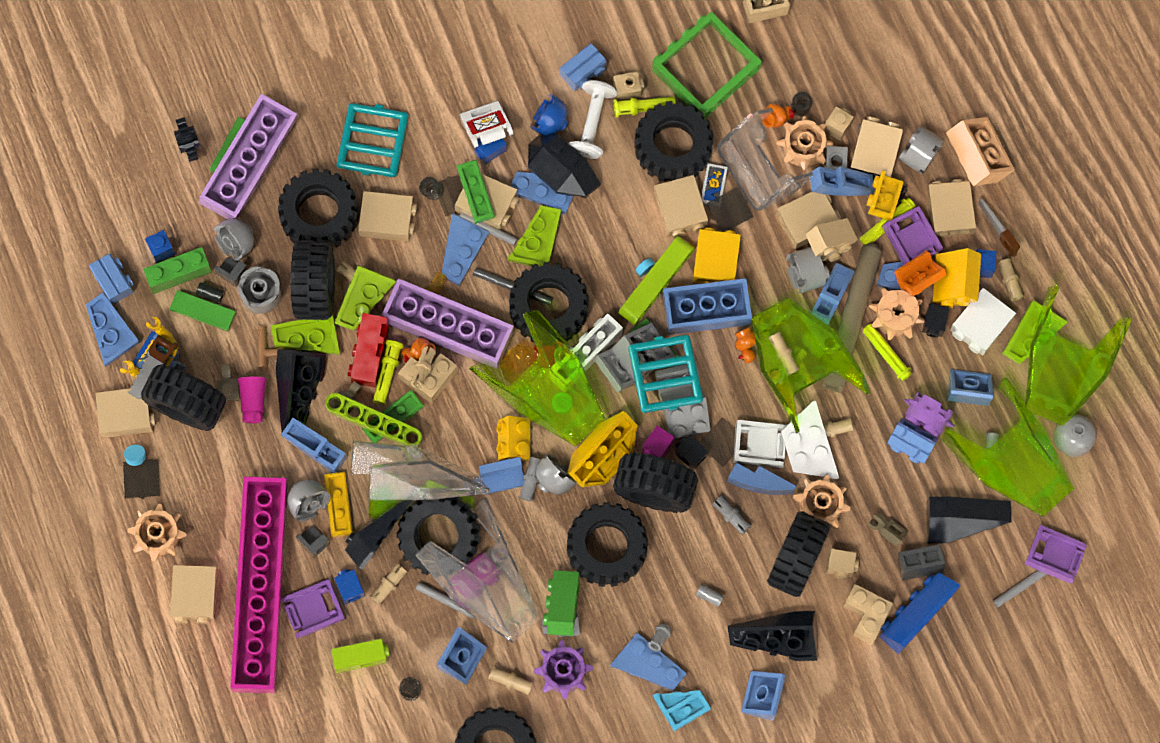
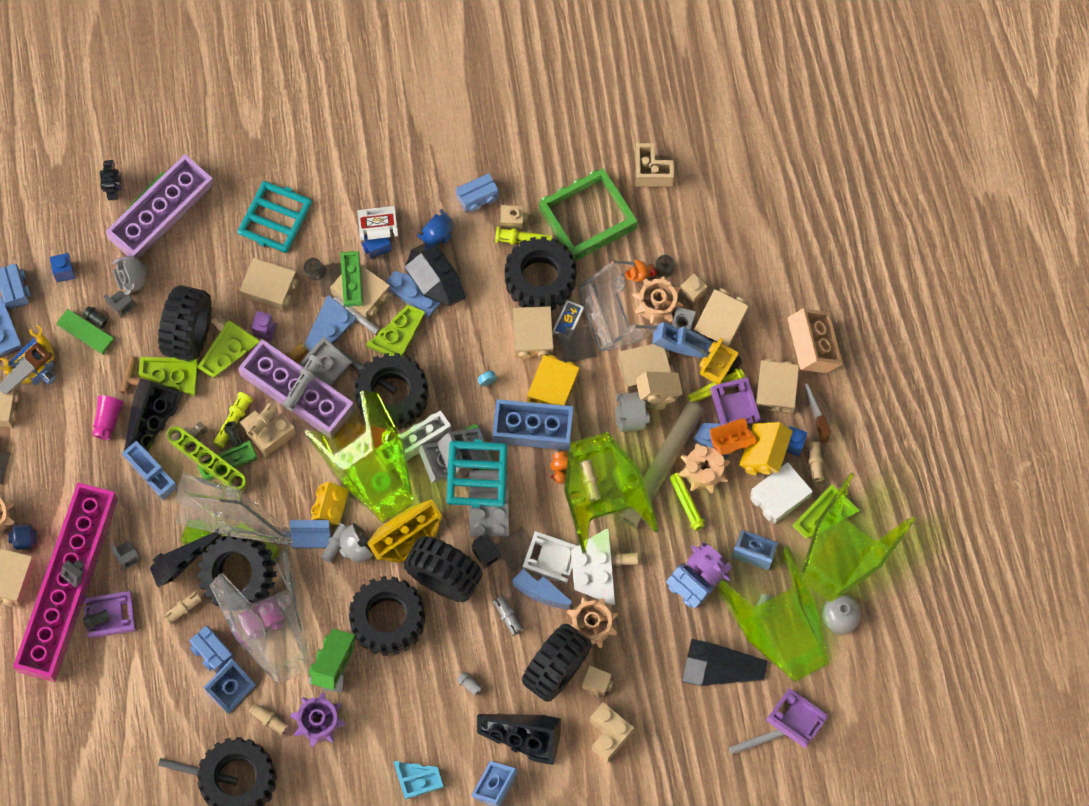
camera: 15 degrees right, 5 degrees down
(177, 270) = (71, 291): bright green brick -> none
(183, 397) = (42, 400): black tyre -> none
(199, 547) = (22, 537): none -> dark blue head
(228, 386) = (88, 403): dark tan plate -> none
(258, 301) = (138, 333): light grey brick -> none
(267, 574) = (73, 573): none -> dark grey tile
(301, 617) = (96, 619): none -> pearl dark grey pin
(306, 499) = (129, 516): light grey cylinder -> none
(318, 184) = (210, 243): black tyre -> none
(338, 505) = (157, 527): yellow tile -> none
(349, 586) = (146, 601): blue brick -> none
(360, 655) = (138, 665): lime brick -> none
(369, 350) = (221, 396): wedge -> none
(390, 382) = (231, 429): none -> pearl dark grey pin
(393, 263) = (263, 326): none -> medium lavender brick
(408, 685) = (175, 701): clear smoke wheel -> none
(416, 349) = (259, 407): orange animal -> none
(431, 622) = (210, 649): none -> medium blue brick
(440, 597) = (224, 628): light grey bar -> none
(457, 306) = (306, 375): none -> light grey pin
(470, 287) = (334, 361): none -> light grey plate
(599, 91) = (485, 216): white hose -> none
(647, 664) = (397, 731): medium blue wing -> none
(656, 280) = (498, 388): lime beam -> none
(658, 443) = (456, 535): magenta brick -> none
(662, 633) = (417, 707): light grey pin -> none
(832, 293) = (649, 439): medium blue slope -> none
(889, 529) = (649, 662): dark tan plate -> none
(919, 612) = (656, 742): blue slope -> none
(921, 149) = (762, 328): light grey brick -> none
(921, 562) = (670, 697): dark grey hinge -> none
(935, 320) = (738, 482): black brick -> none

